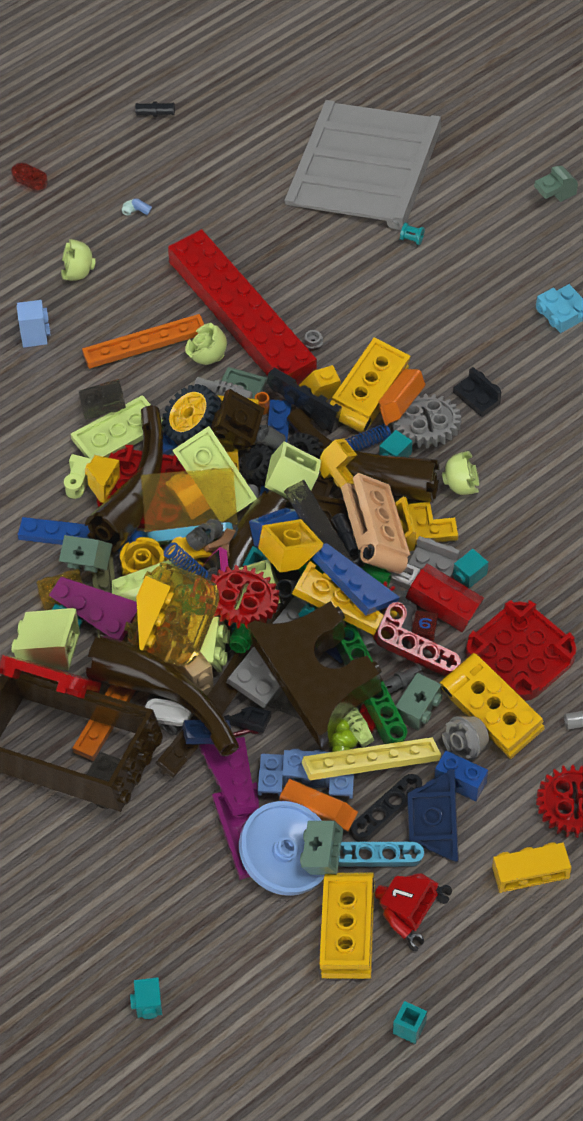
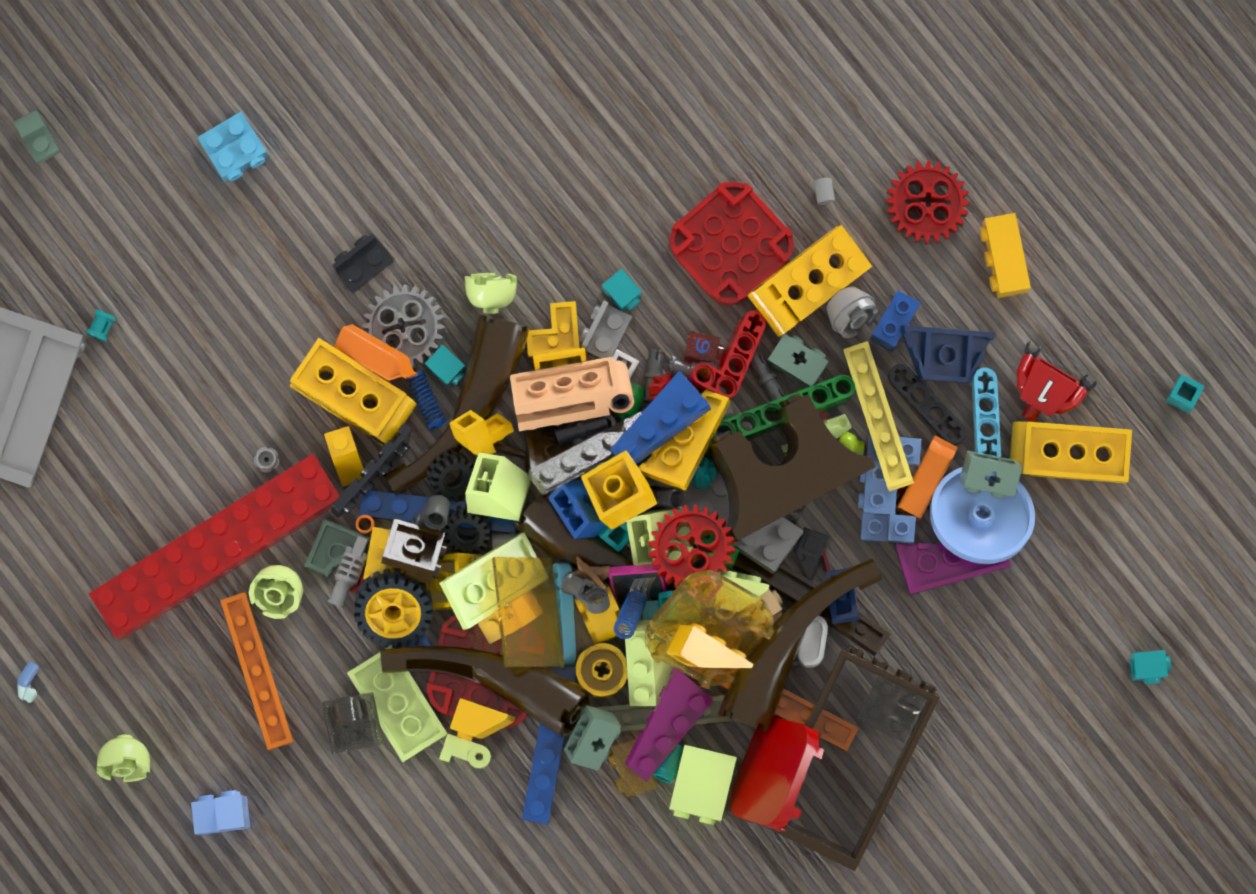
camera: 90 degrees left, 25 degrees up
(232, 776) = (896, 568): magenta wing -> none
(444, 596) = (661, 320): red slope -> none

